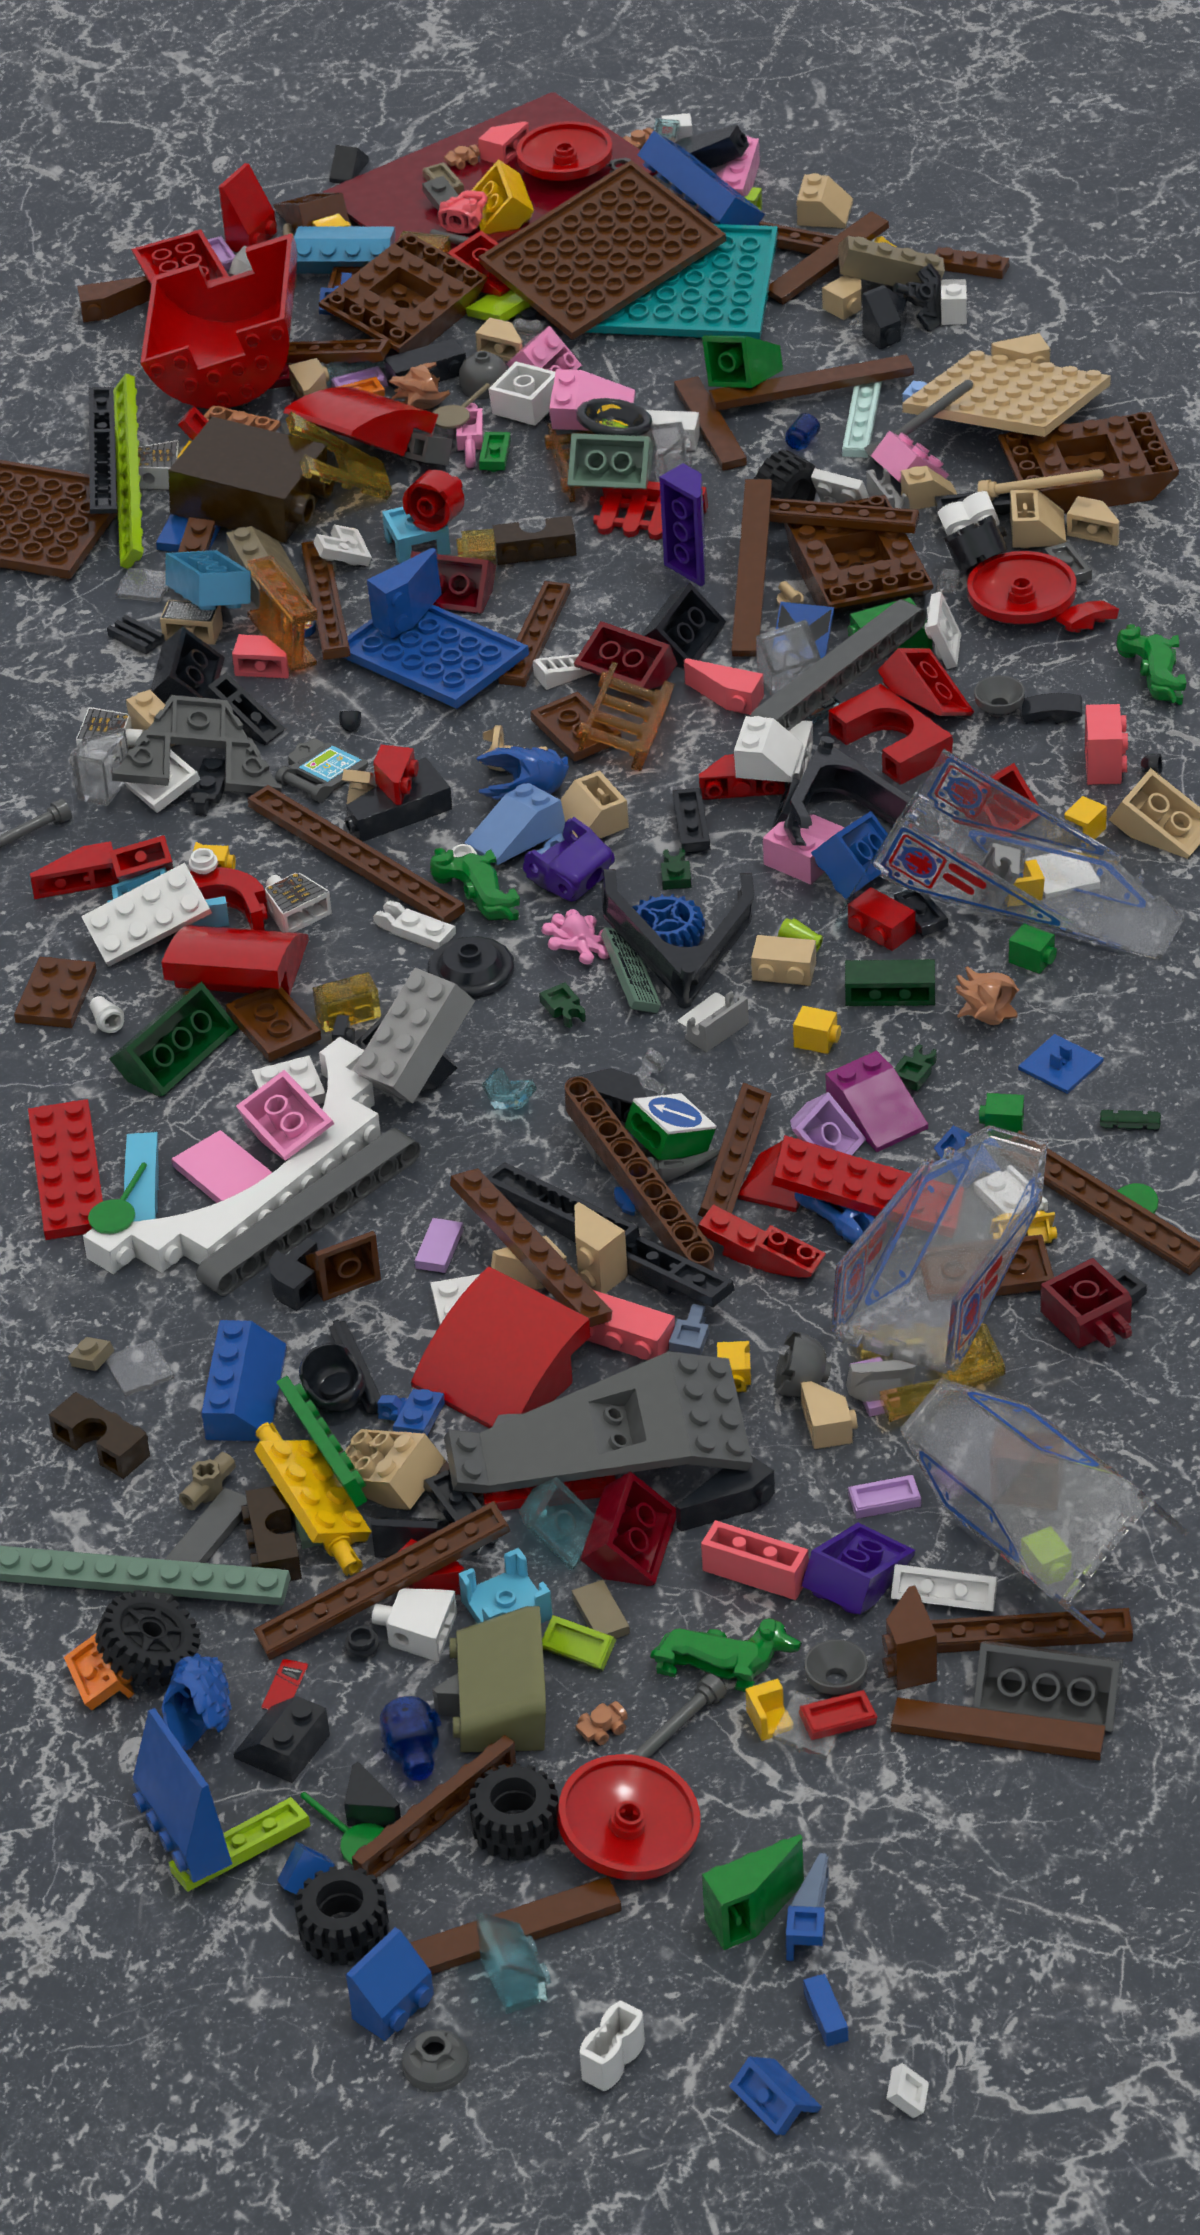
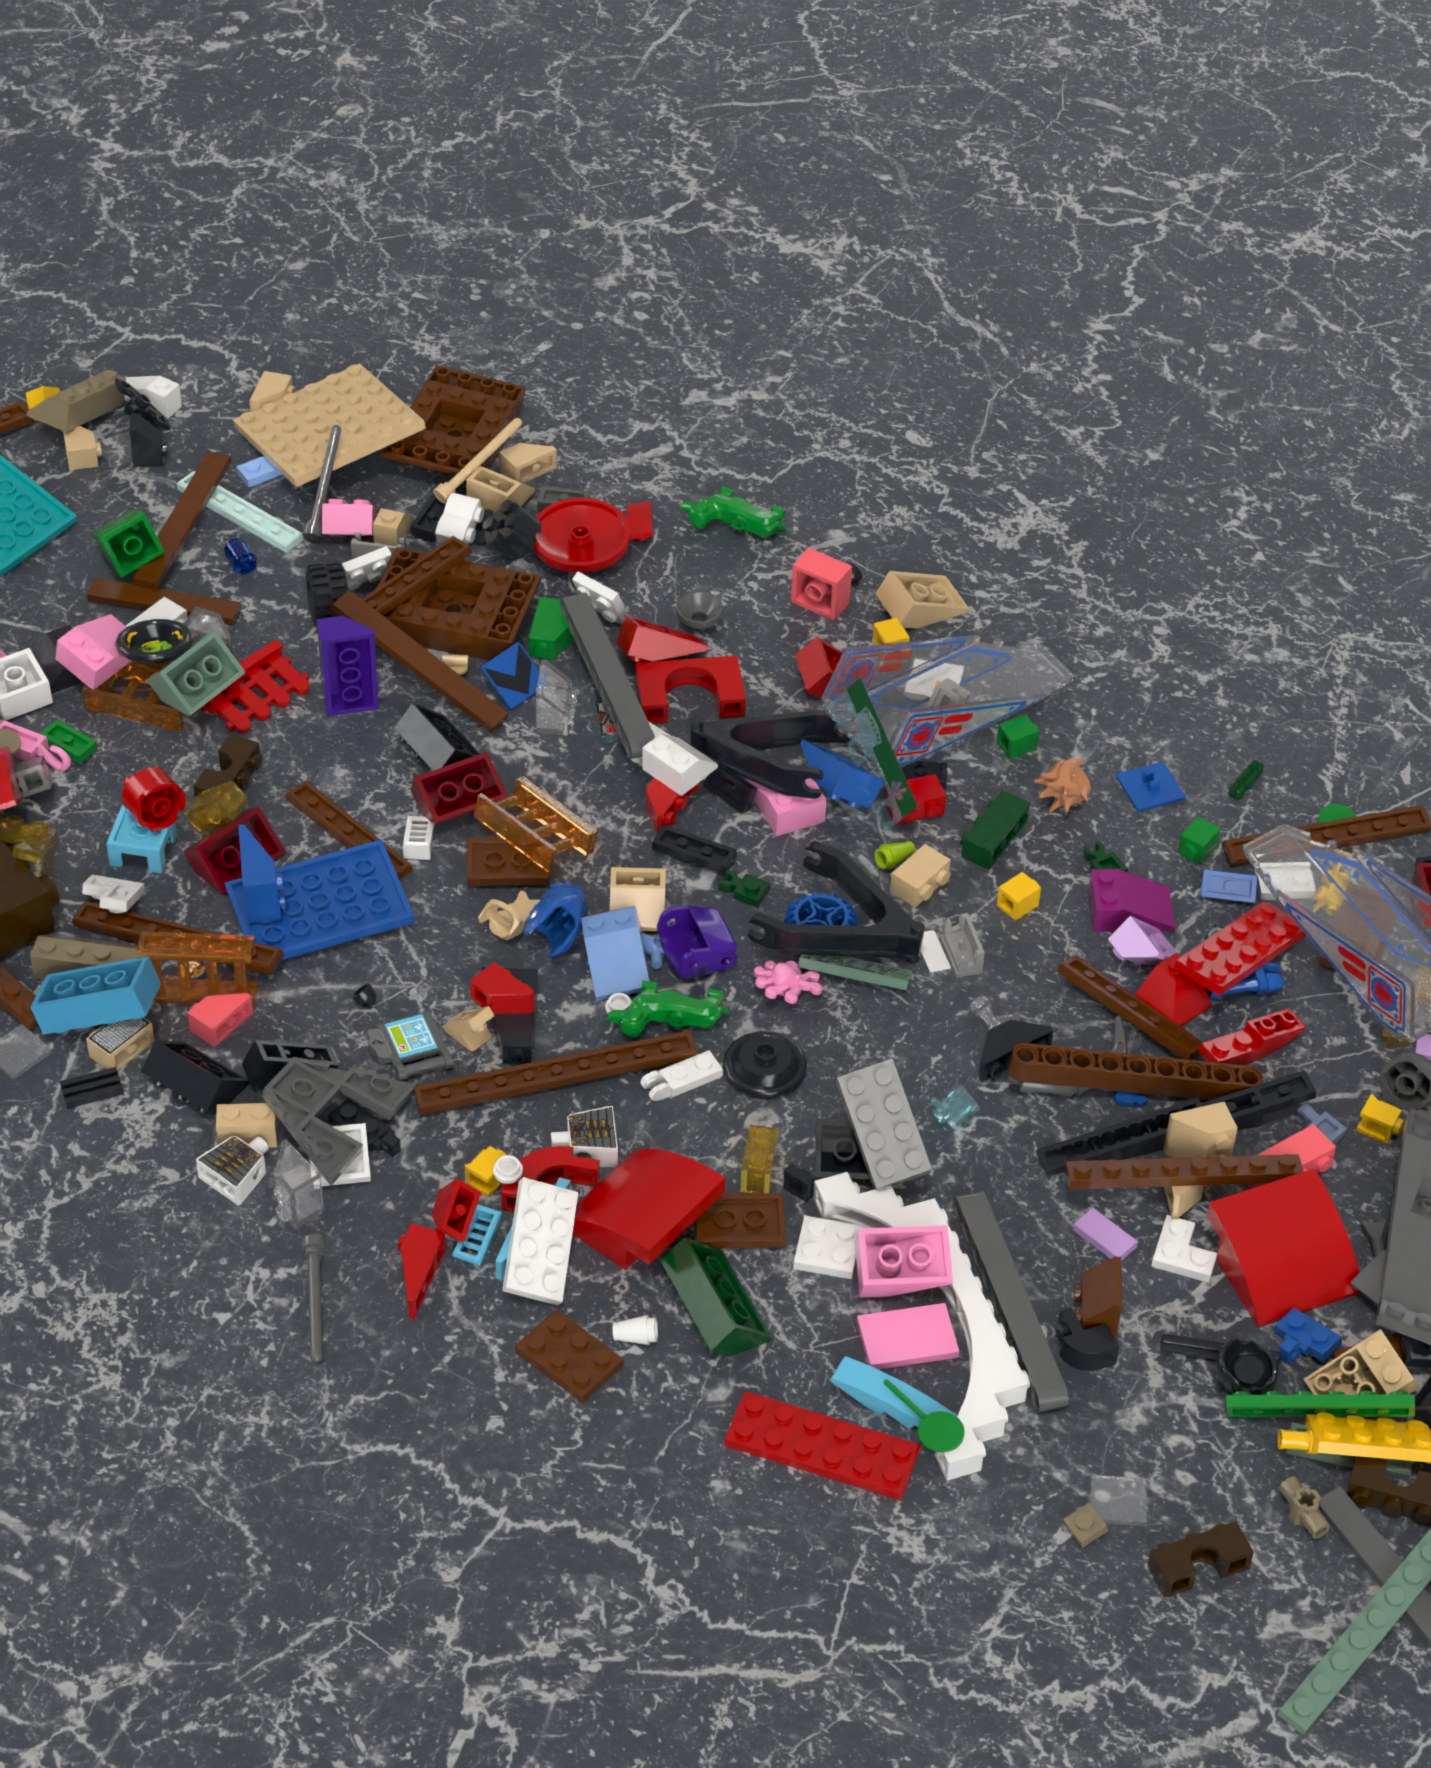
camera: 65 degrees left, 5 degrees up
(242, 1381) = (1195, 1437): blue slope -> none
(562, 1001) = (863, 1027): dark green plate -> none
(670, 1126) = (1084, 1025): piece -> none
(726, 686) = (541, 751): coral slope -> none
(823, 259) = (18, 424): reddish brown tile -> none
(973, 263) = (113, 359): reddish brown plate -> none
(1058, 705) = (734, 590): black slope -> none

